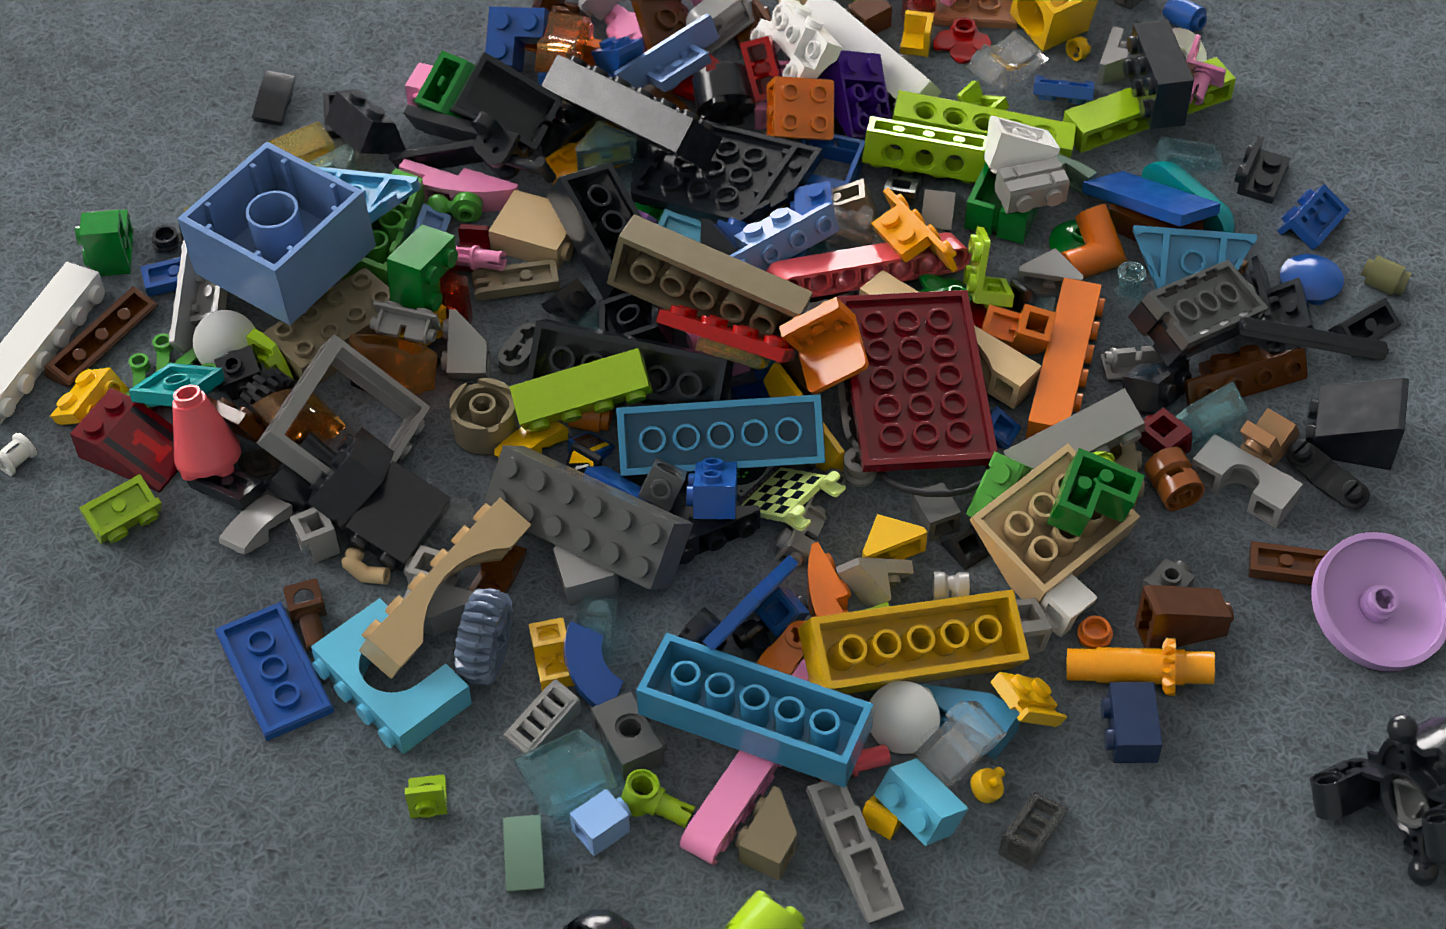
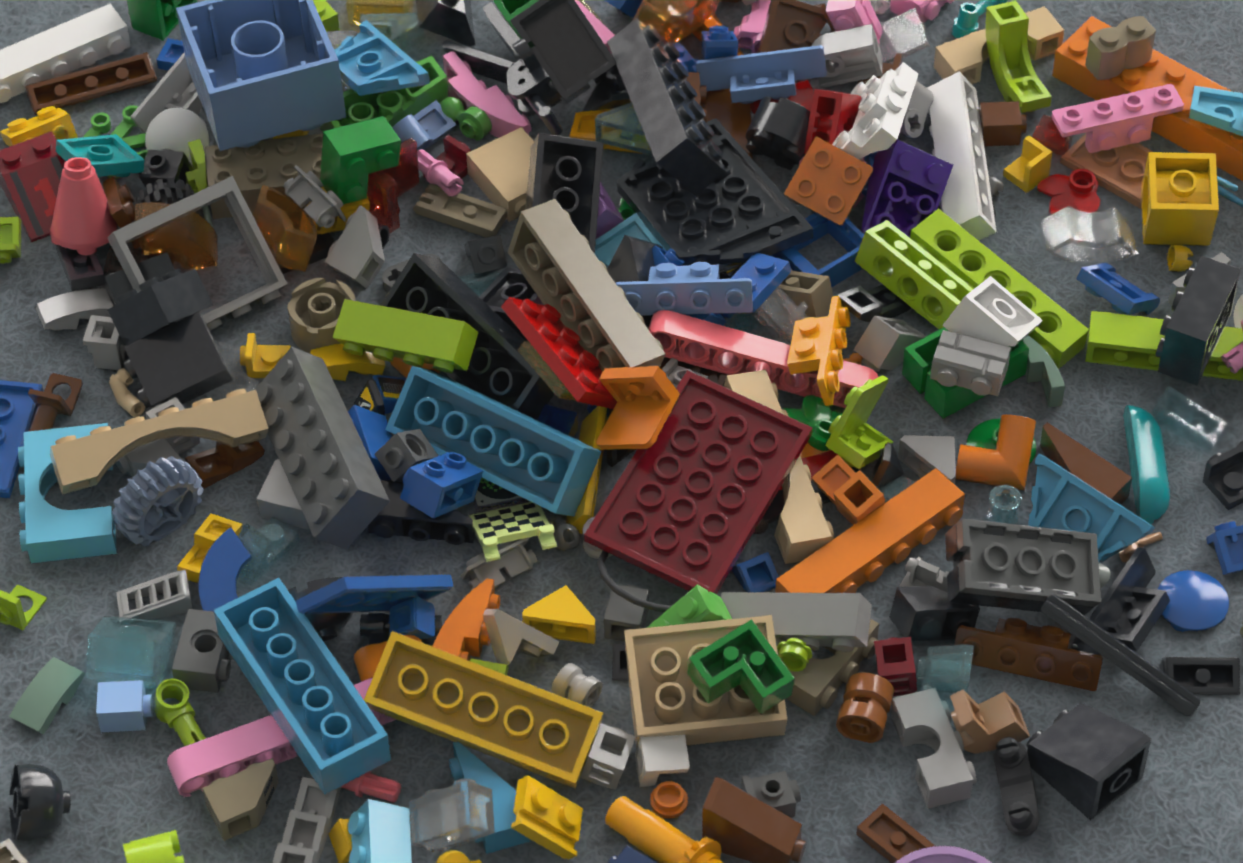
camera: 35 degrees right, 0 degrees up
(460, 477) = (260, 358): none -> yellow bracket
(903, 715) = (430, 763): white dish -> none
(973, 95) = (1024, 258): lime bracket -> none
(1151, 198) = (1091, 438): blue tile -> none

